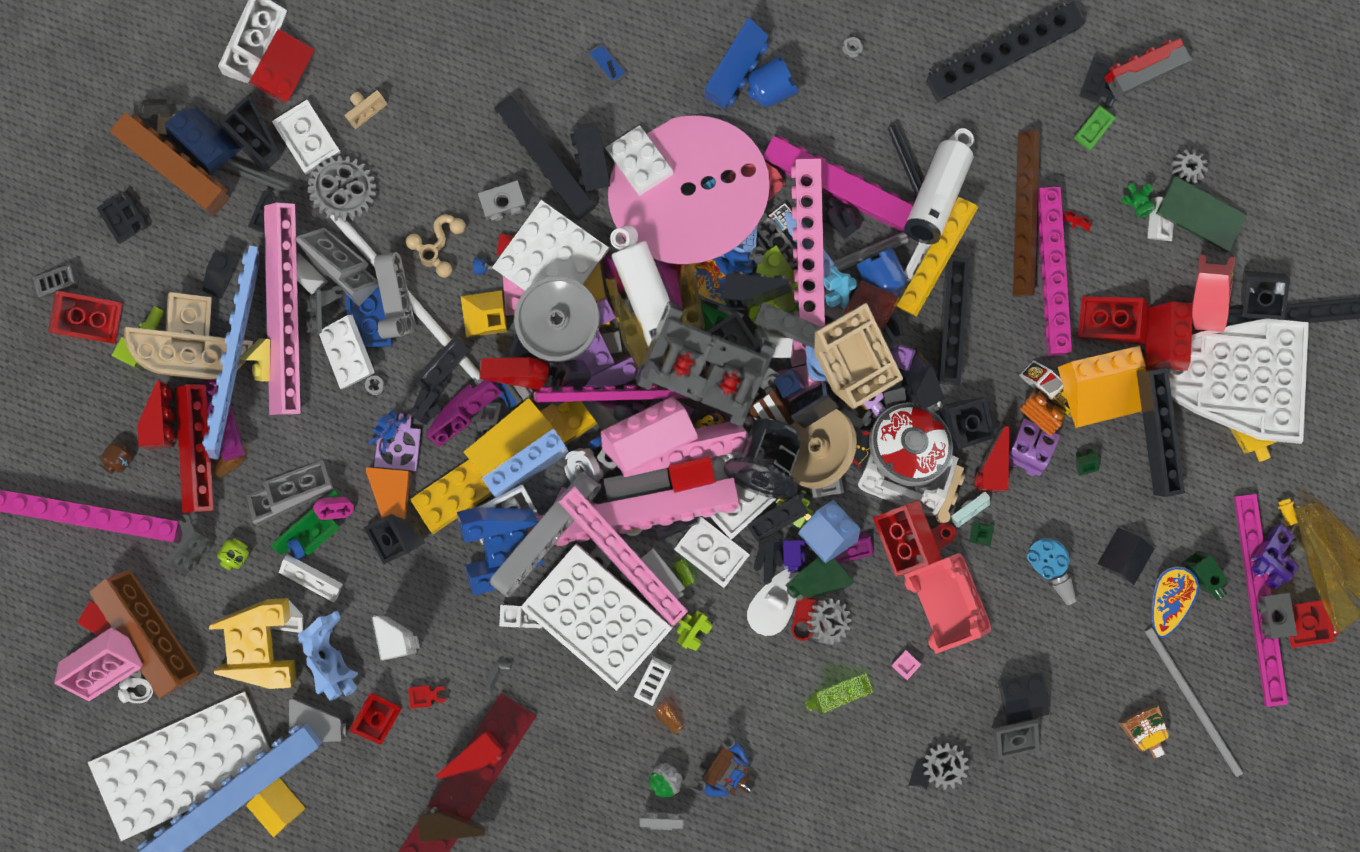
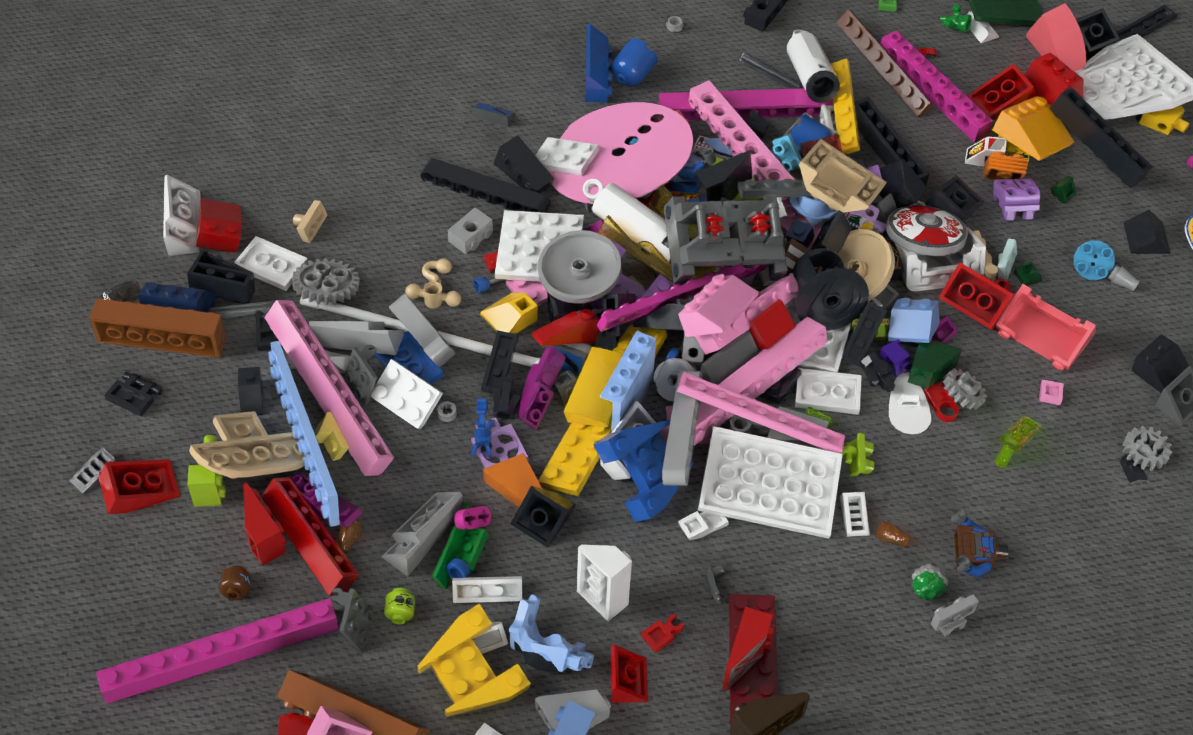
camera: 30 degrees left, 30 degrees down
(994, 469) = (1001, 216): red slope -> none

